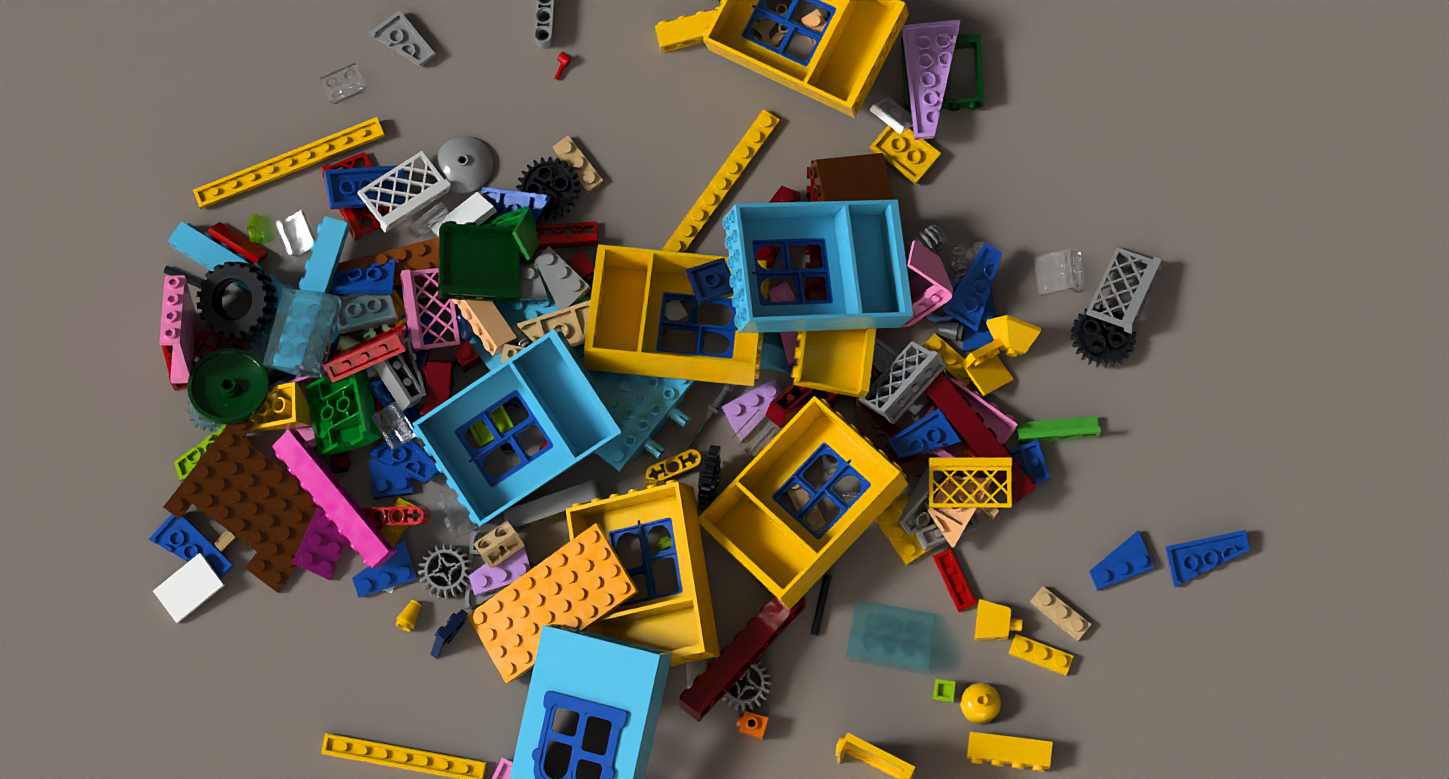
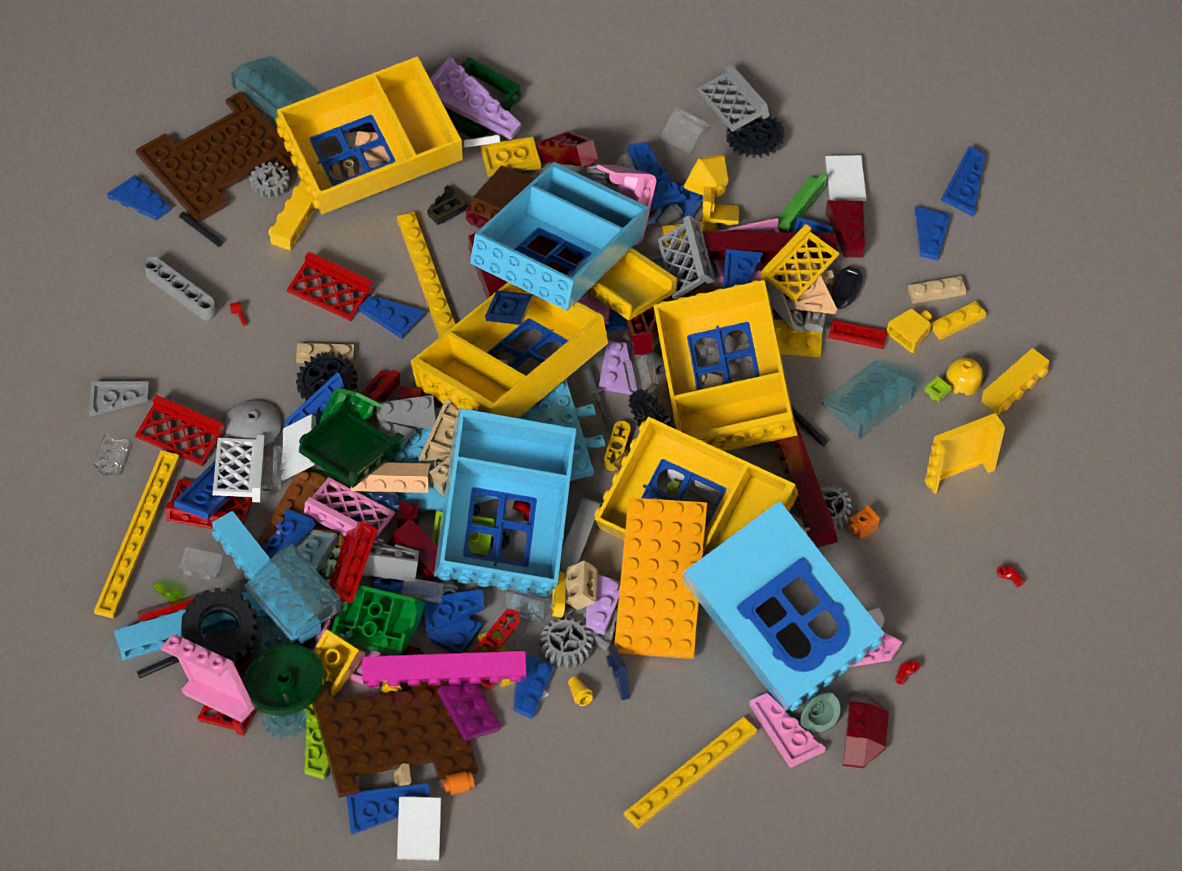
camera: 60 degrees left, 20 degrees down
(252, 586) = (458, 782): none -> orange brick
(426, 116) = (184, 415): none -> red fence
(479, 532) = (558, 596): none -> yellow beam
(659, 187) = (392, 315): none -> blue wing
(661, 108) = (340, 275): none -> red fence
(807, 140) = (446, 206): none -> black wing
(940, 196) = (568, 149): none -> dark red wedge
(996, 535) = (846, 287): none -> black piece
(1064, 490) = (848, 224): none -> dark red wedge
(1121, 447) = (845, 178): none -> white tile

